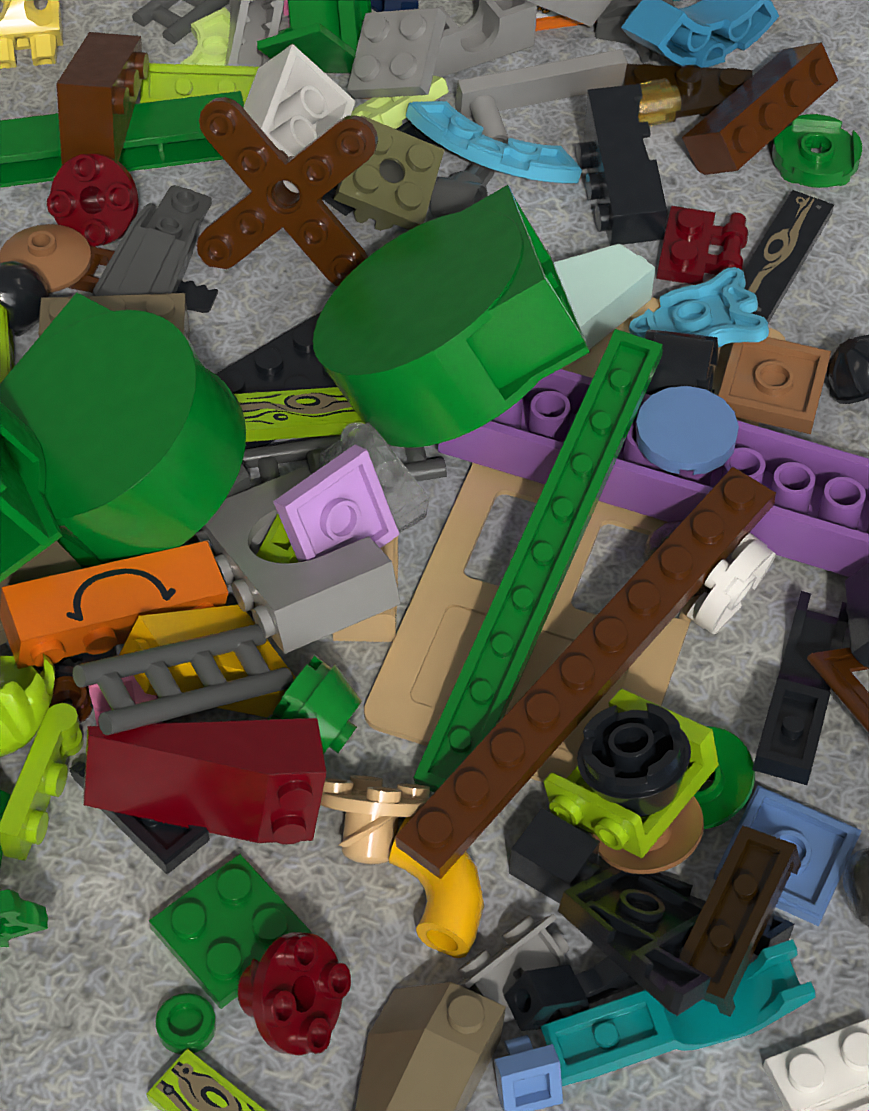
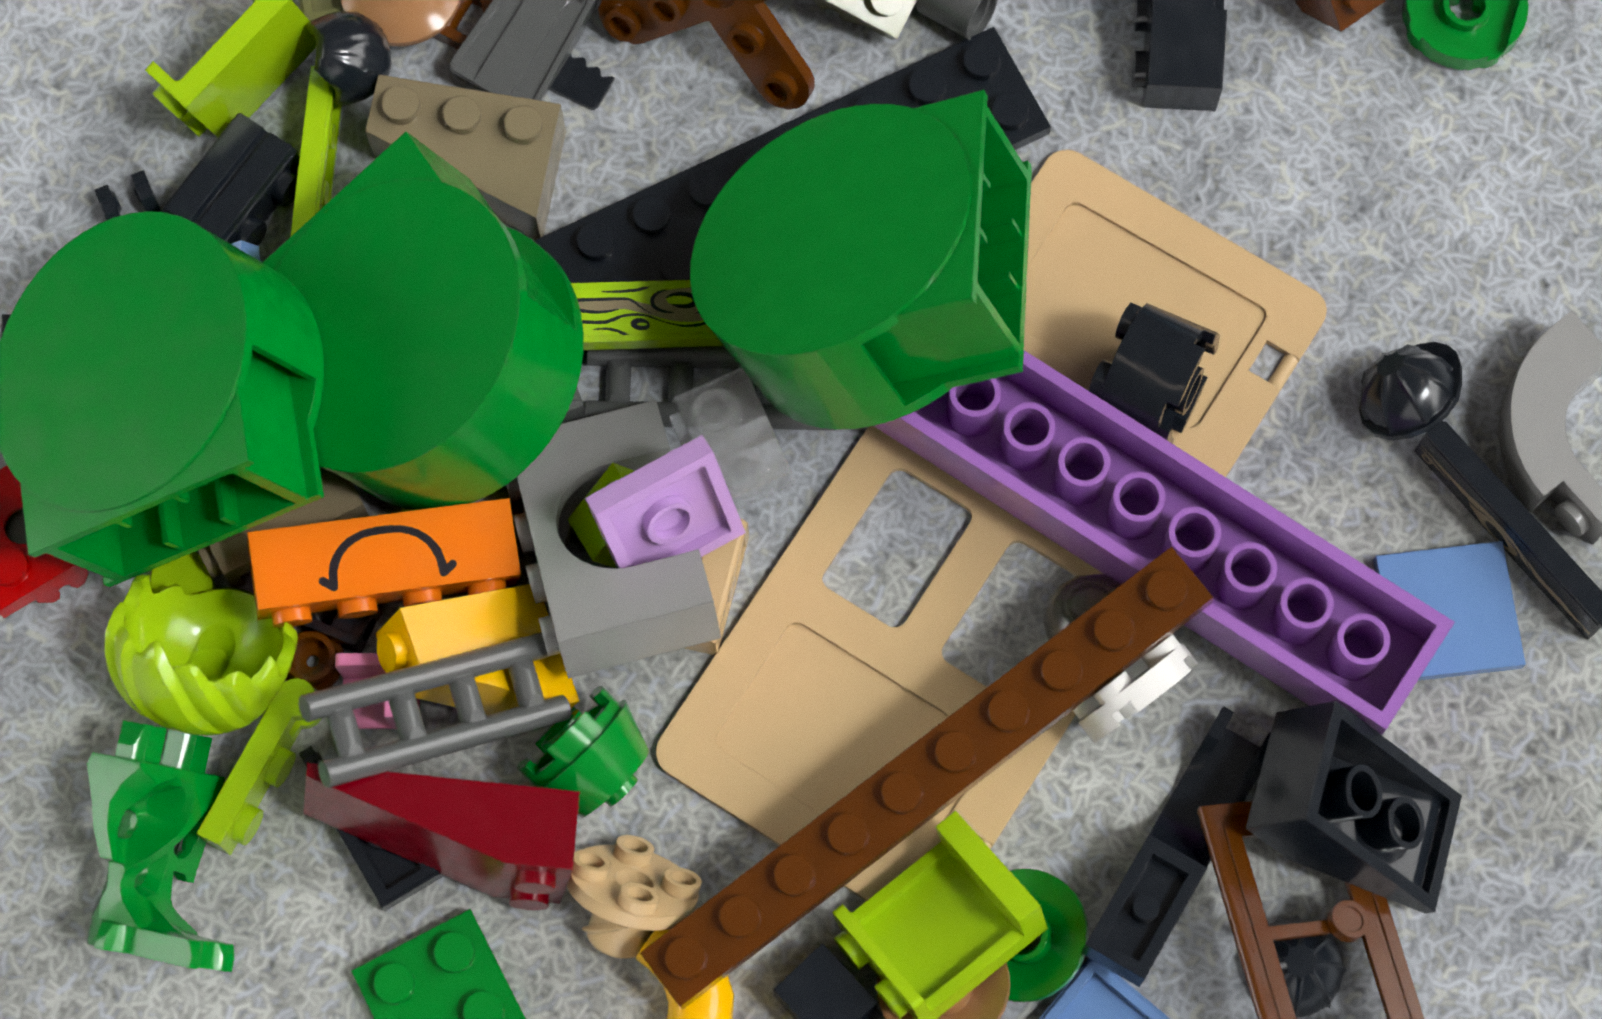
camera: 15 degrees right, 20 degrees up
(542, 556) = (911, 606): green plate -> none
(605, 288) = (1092, 201): light aqua slope -> none
(635, 757) = (937, 919): black cone -> none
(686, 430) = (1133, 472): medium blue tile -> none
(687, 245) = (1243, 131): dark red plate -> none
(709, 309) = (1221, 267): medium azure tile -> none
(775, 382) = (1284, 385): medium nougat plate -> none
(785, 250) = (1357, 178): black tile -> none

